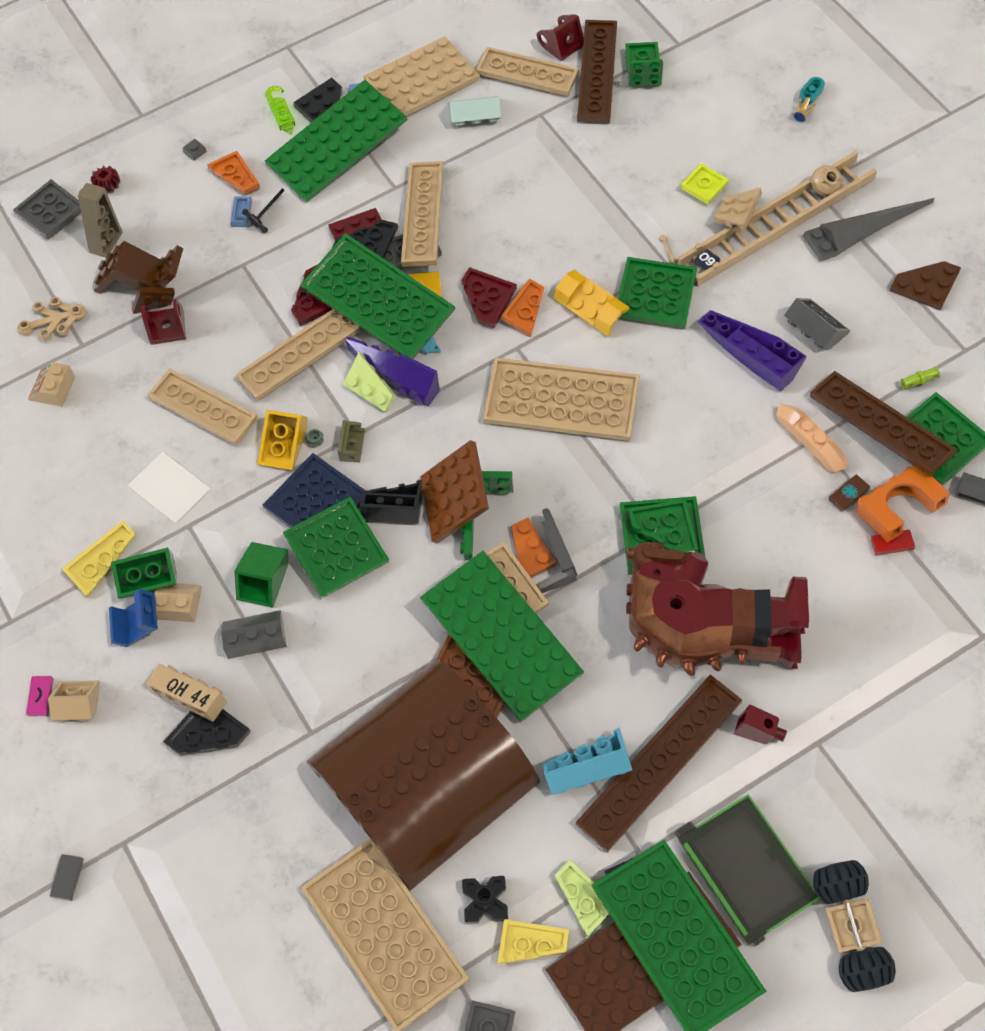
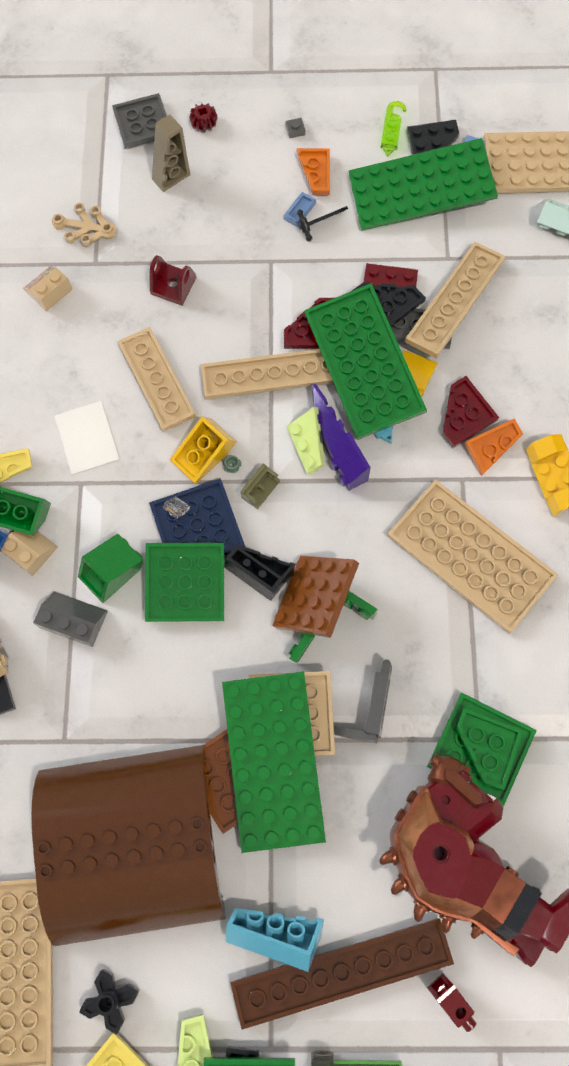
camera: 30 degrees right, 10 degrees up
(137, 268) = (176, 218): reddish brown bracket -> none
(153, 297) = (175, 252): reddish brown wing -> none
(290, 493) = (176, 507): none -> clear plate
(531, 549) = (353, 688): orange wing -> none

